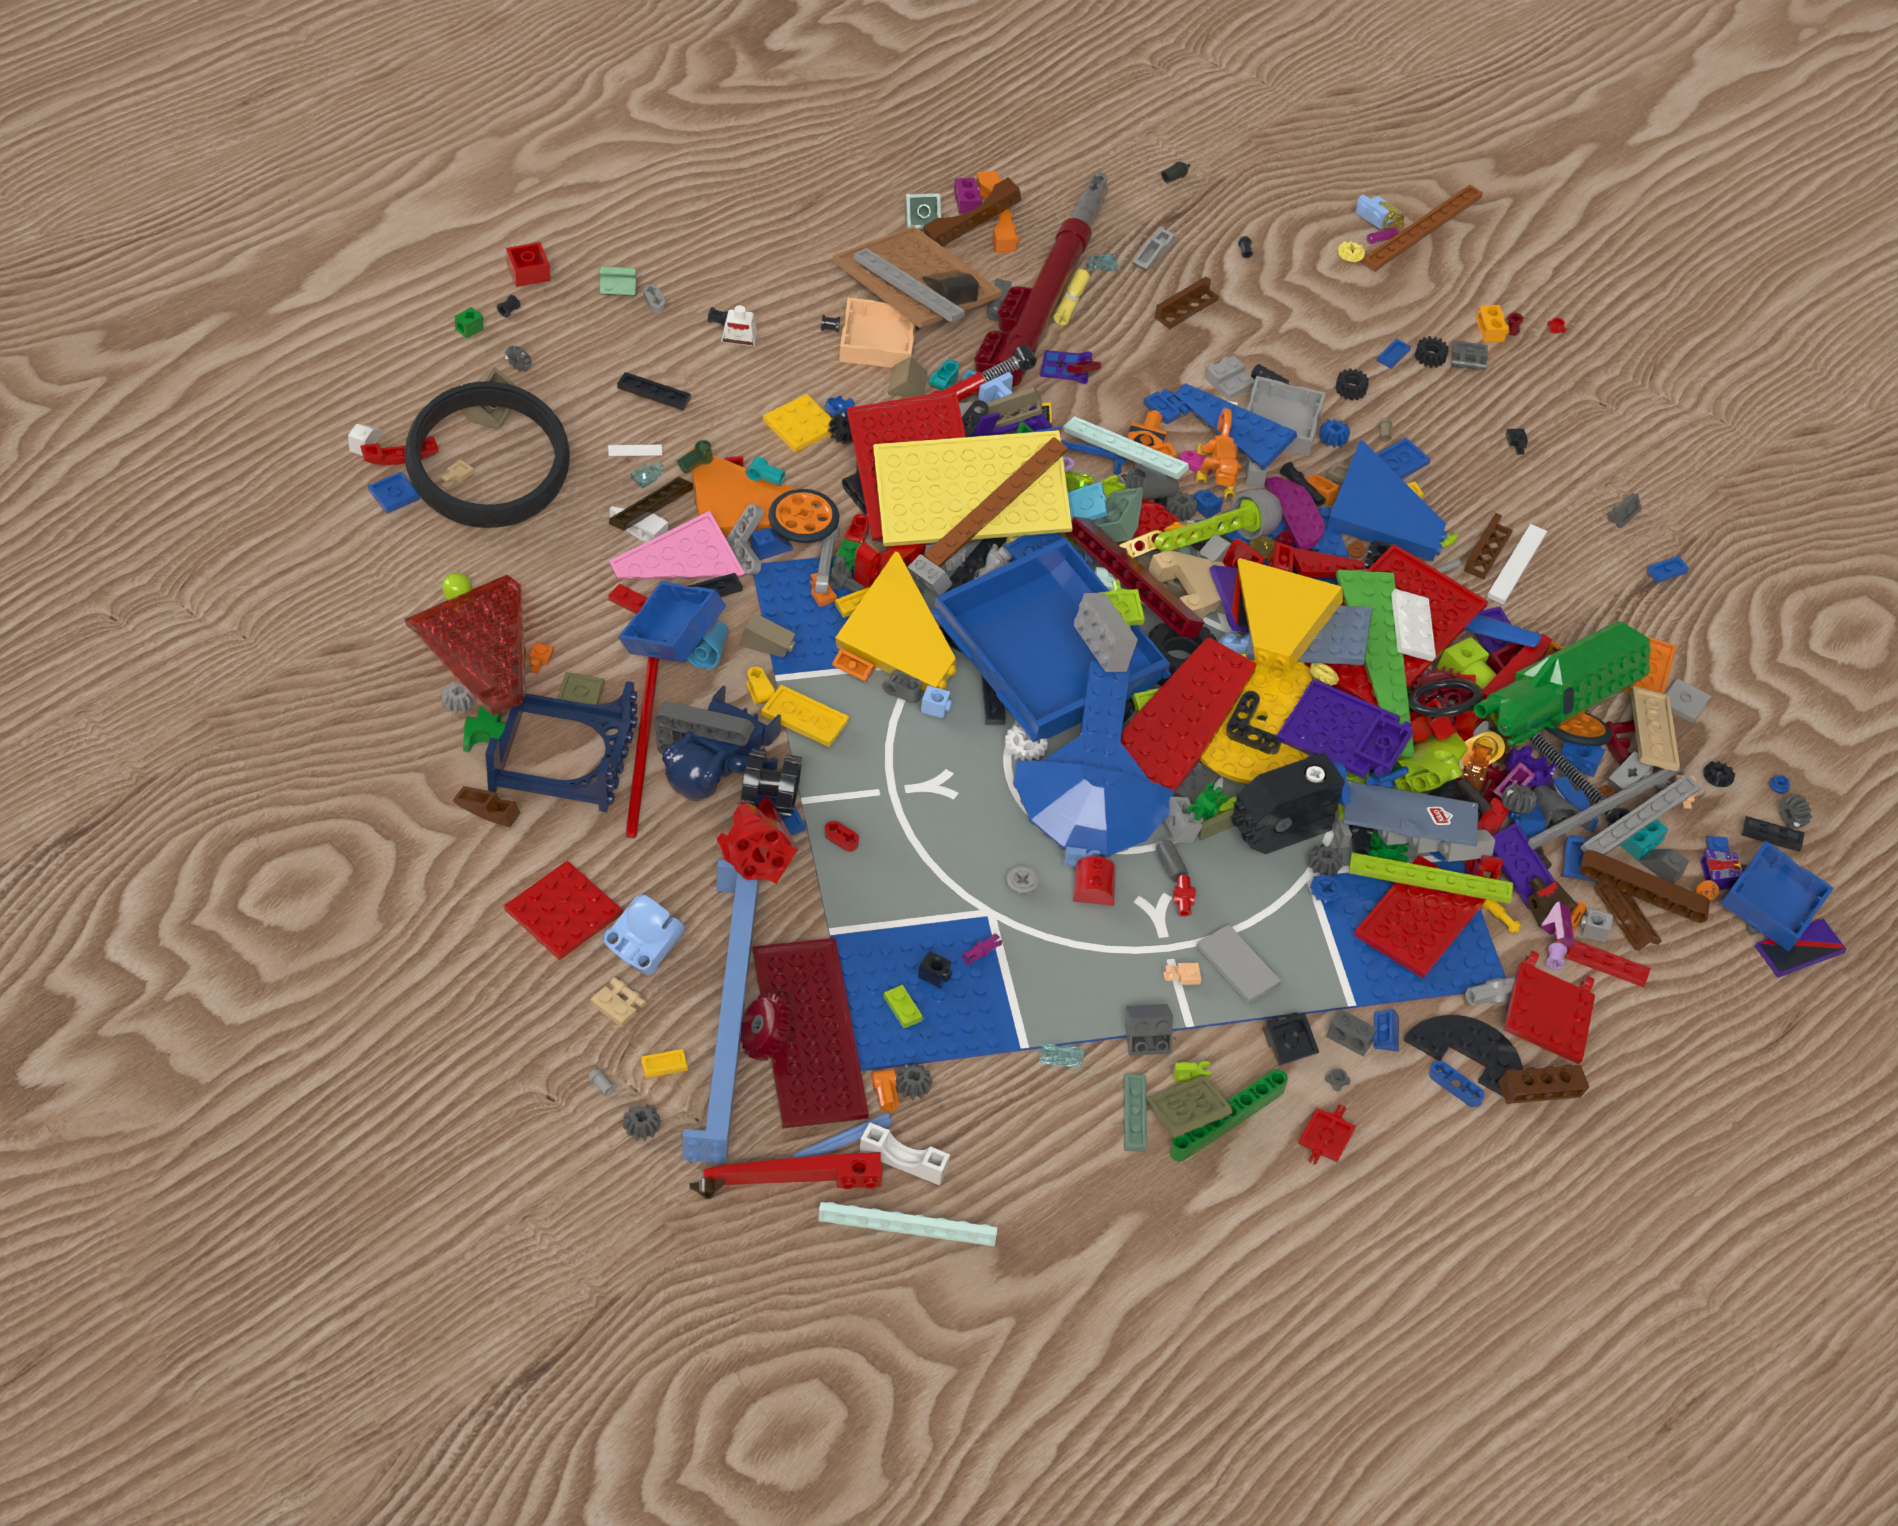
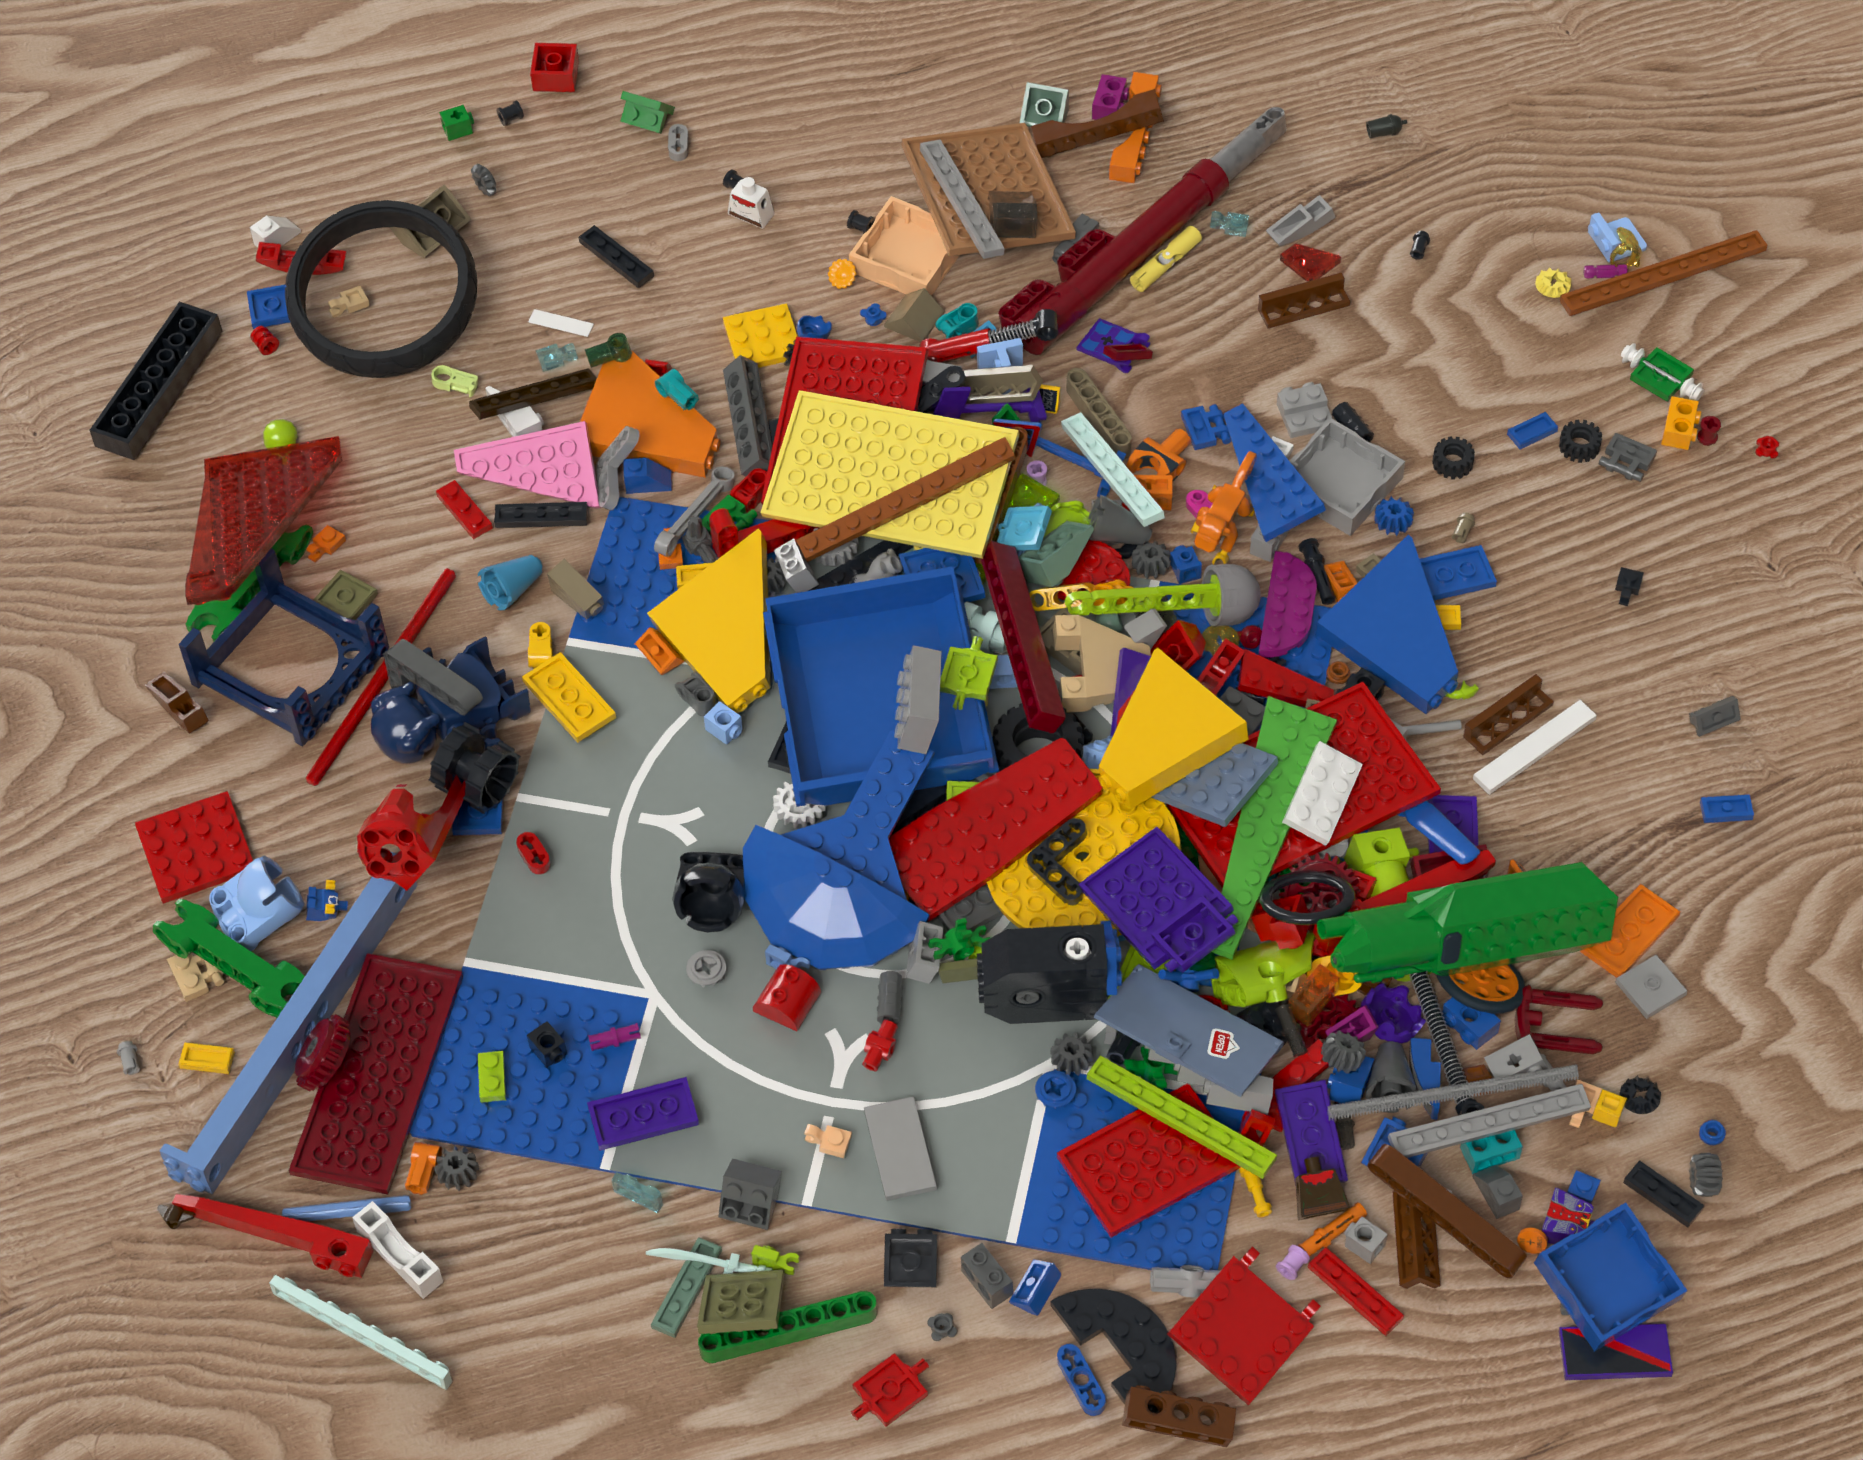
camera: 30 degrees right, 5 degrees up
(332, 569) = (156, 380): none -> black brick
(403, 518) = (265, 342): none -> red bush
(579, 511) = (458, 381): none -> yellowish green piece
(612, 971) = (201, 937): none -> green piece
(641, 1122) = (143, 1117): dark grey gear -> none
(672, 621) = (473, 543): blue tile -> none
(695, 920) = (324, 903): none -> blue piece
(799, 533) = (706, 475): wedge -> none
(826, 478) = (748, 414): none -> dark grey brick
(837, 362) = (842, 273): none -> light orange piece
(876, 387) = (873, 315): none -> blue plate
(999, 820) = (709, 890): none -> black piece
(1035, 997) = (643, 1113): none -> dark purple plate
(1072, 405) = (1098, 411): none -> dark tan beam
(1160, 1086) = (729, 1265): none -> light aqua sword
(1173, 276) = (1309, 262): none -> clear red wing
(1324, 673) = (1169, 817): light yellow gear -> none
(1460, 294) = (1661, 373): none -> green plate
(1560, 924) = (1312, 1225): magenta slope -> none
(1654, 729) = (1574, 1013): tan plate -> none
(1708, 788) = (1609, 1108): none -> yellow slope

